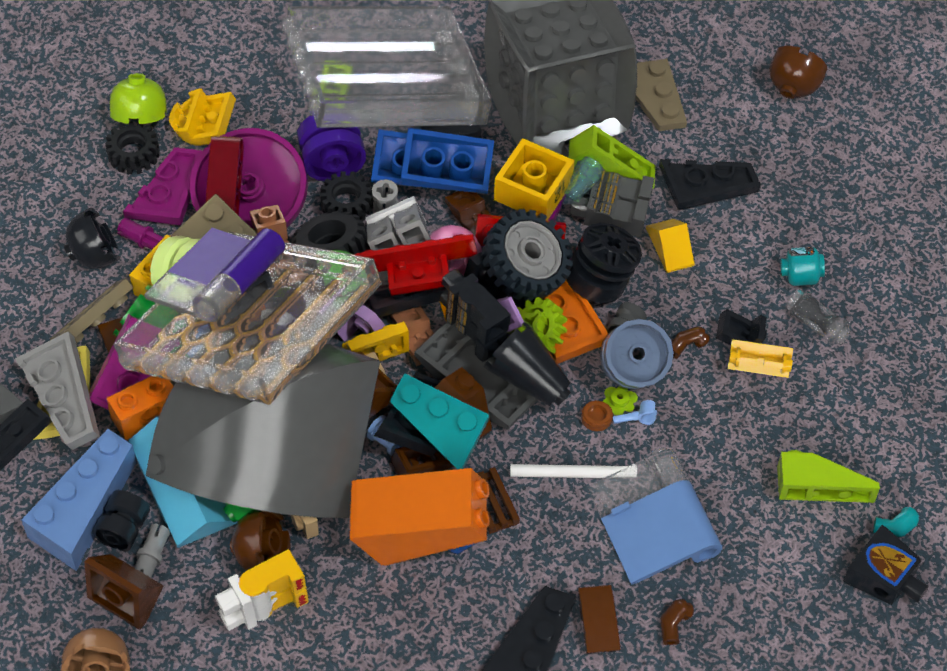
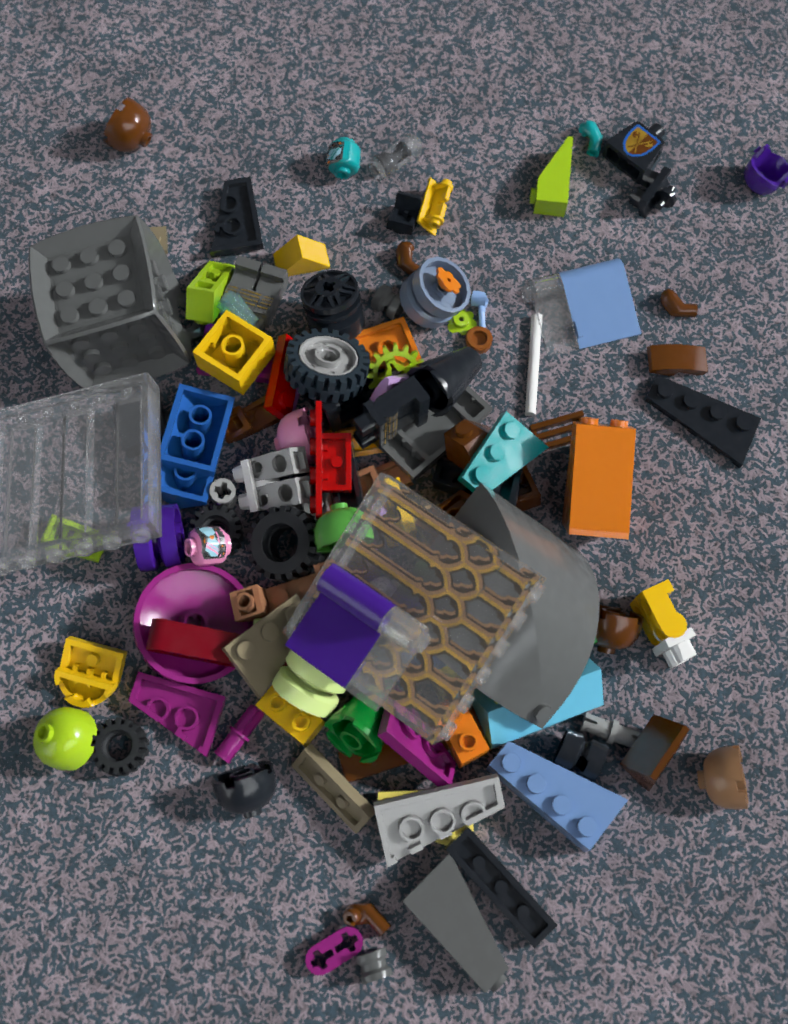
camera: 85 degrees left, 15 degrees up
(321, 177) = (207, 545): none -> head
(647, 348) = (447, 281): none -> orange plant
(827, 590) = (658, 194): none -> black hips

